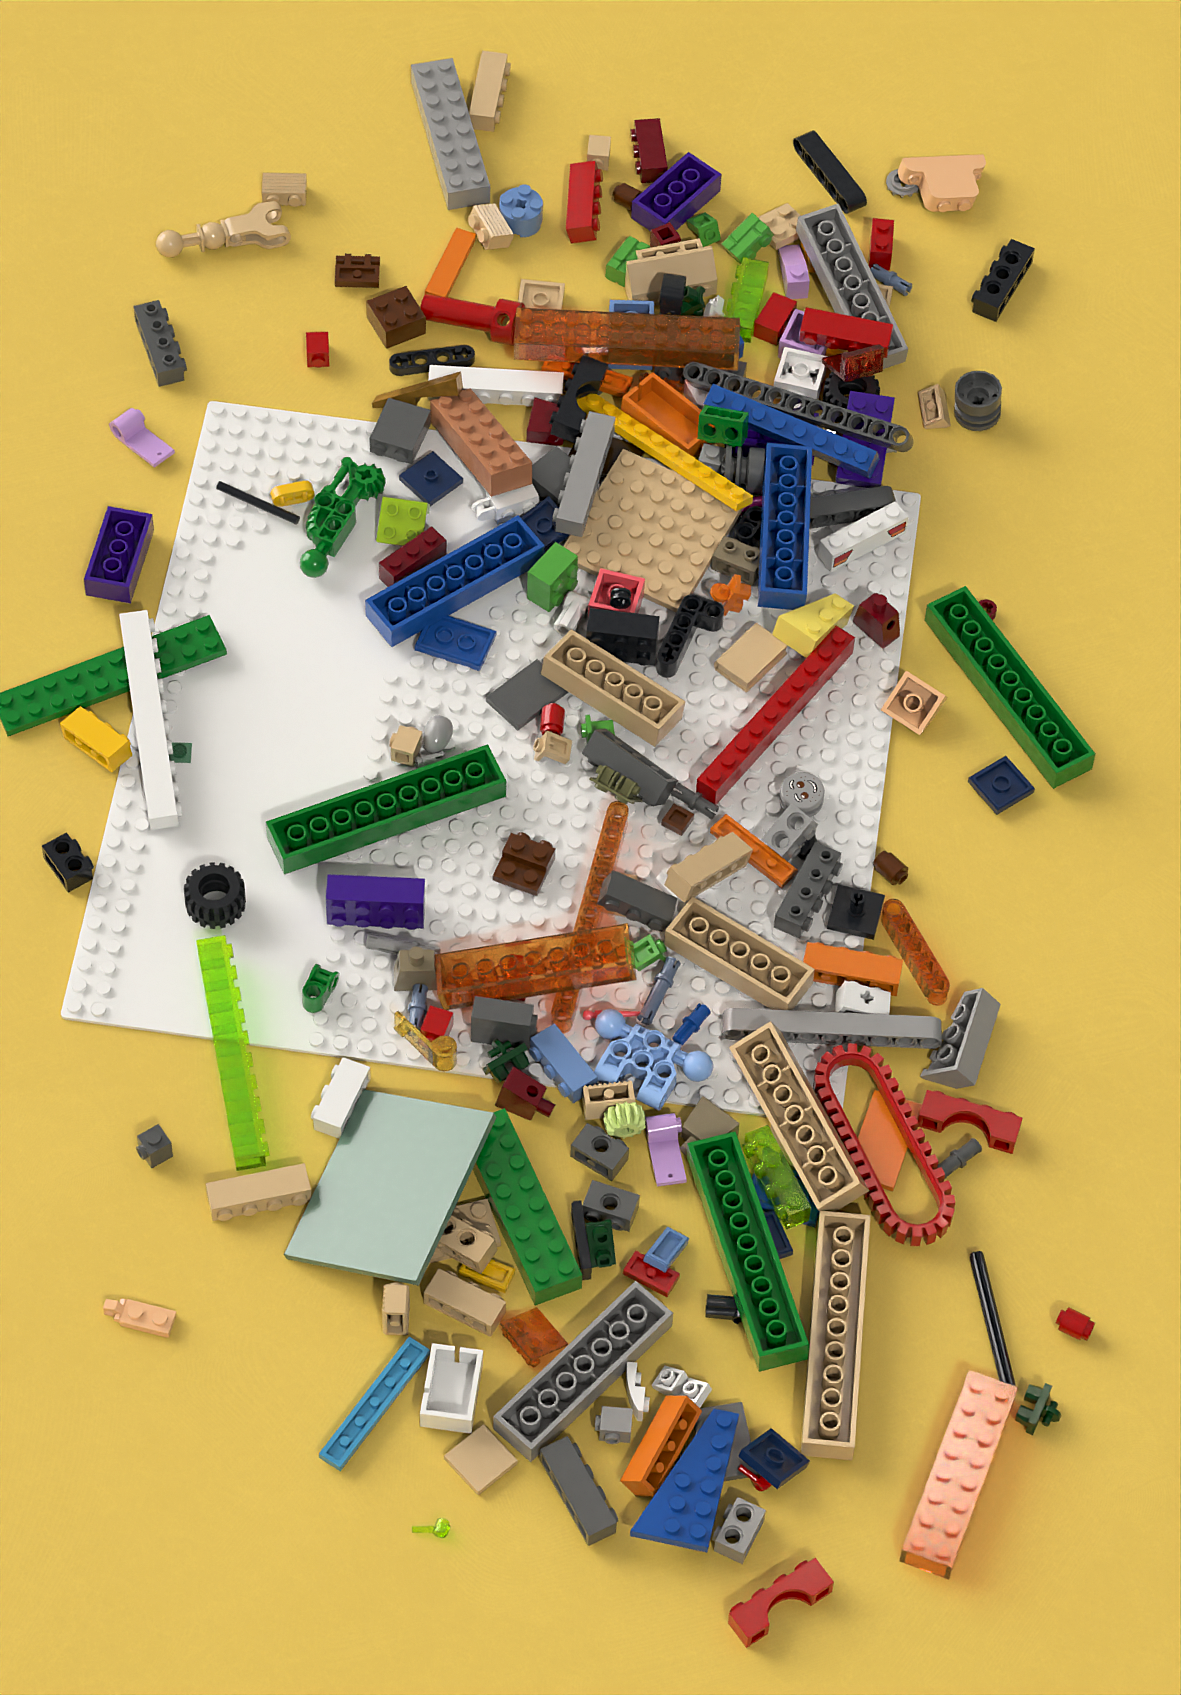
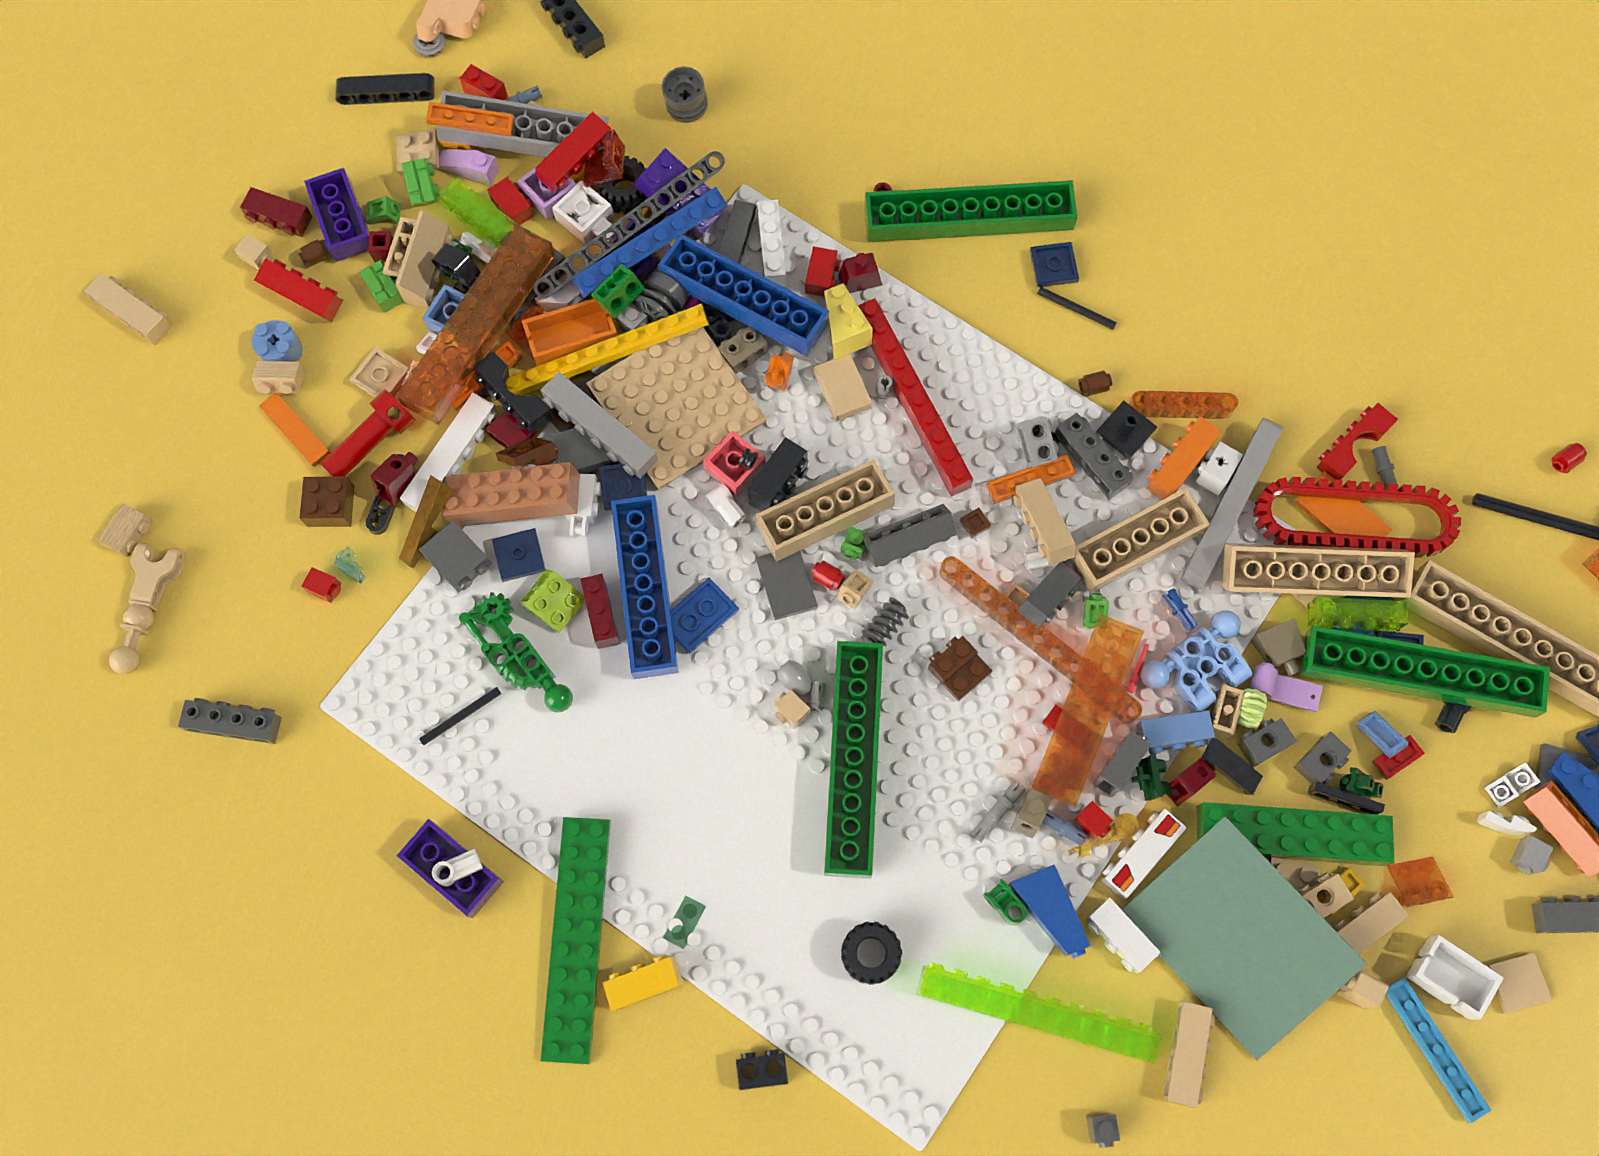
camera: 60 degrees left, 15 degrees up
(120, 549) = (459, 867): none -> white piece
(131, 431) = (314, 792): lavender door -> none
(149, 720) = (652, 925): white brick -> none
(292, 493) = (470, 681): yellow beam -> none
(334, 1025) = (1052, 909): none -> blue slope
(347, 357) = (345, 563): none -> clear light blue bracket
(357, 271) = (258, 514): reddish brown plate -> none
(375, 901) = (947, 817): dark purple brick -> none
(428, 1084) = (1143, 854): none -> white brick
(440, 1529) = (1575, 1050): clear neon green hand -> none
(445, 348) = (394, 477): none -> dark red torso
(450, 134) = (154, 361): light grey brick -> none
(532, 440) = (530, 451): none -> reddish brown plate
(532, 785) = (886, 622): none -> dark grey piece
(552, 577) = (687, 503): bright green brick -> none
(555, 1124) = (1232, 766): none -> black tile
(582, 1371) = (1478, 860): light grey brick -> none
(625, 789) = (924, 559): olive hinge -> none
(662, 982) = (1135, 619): sand blue pin -> none
(683, 629) = (797, 429): black beam -> none
(695, 801) = (964, 499): dark grey pin -> none
(771, 686) = (880, 391): none -> light grey pin
(803, 791) = (998, 415): light grey head -> none
(824, 238) = (470, 119): none -> orange tile
(860, 585) = (821, 271): none -> red brick
(914, 703) = (950, 287): light nougat slope -> none
(934, 407) = (664, 132): tan slope -> none
(964, 1041) = (1284, 408): light grey wedge -> none
(967, 825) = (1077, 308): none -> black bar

